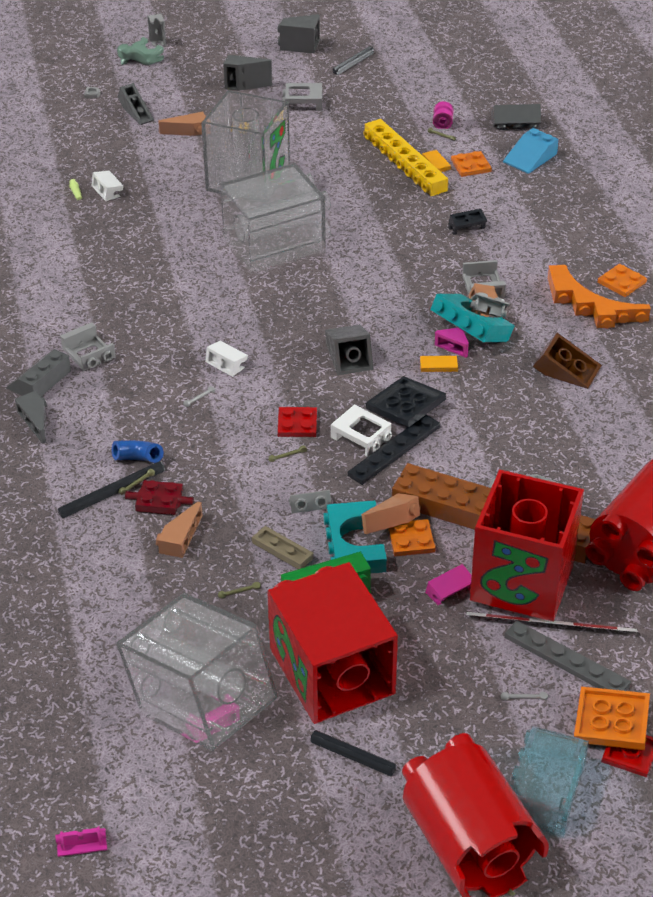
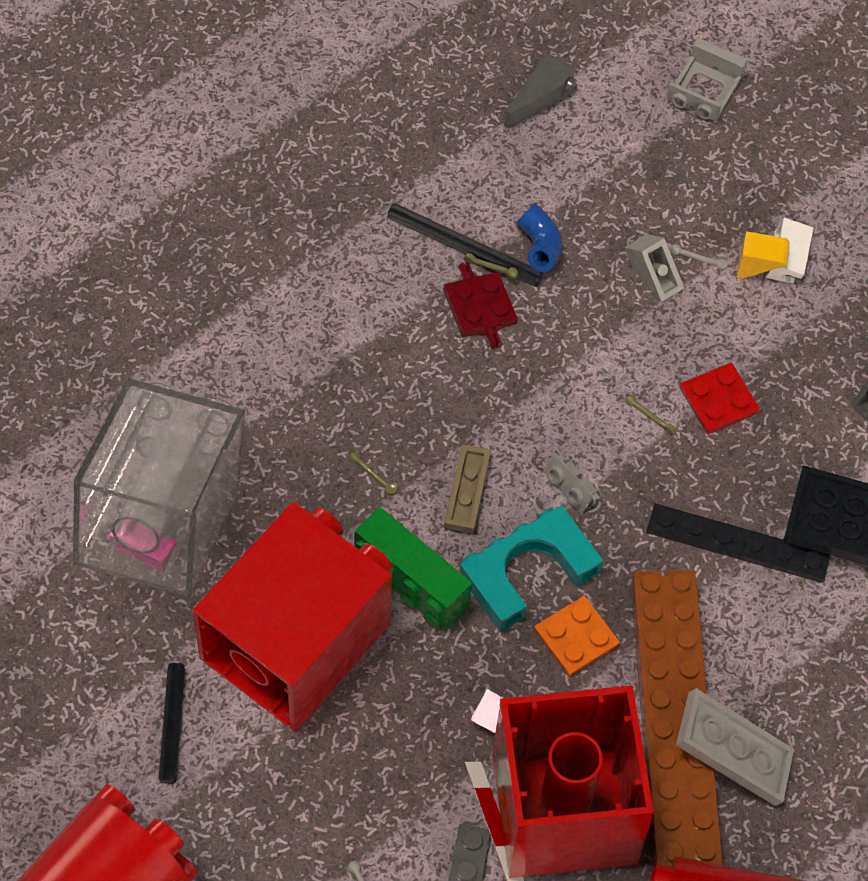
camera: 60 degrees right, 20 degrees up
(42, 374) = (619, 58): dark grey slope -> none
(179, 532) = (425, 357): nougat slope -> none
(192, 411) = (655, 265): none -> light grey slope
(222, 365) = (761, 254): none -> yellow slope
(350, 418) = (749, 459): white window -> none
(391, 512) = (589, 591): nougat slope -> none

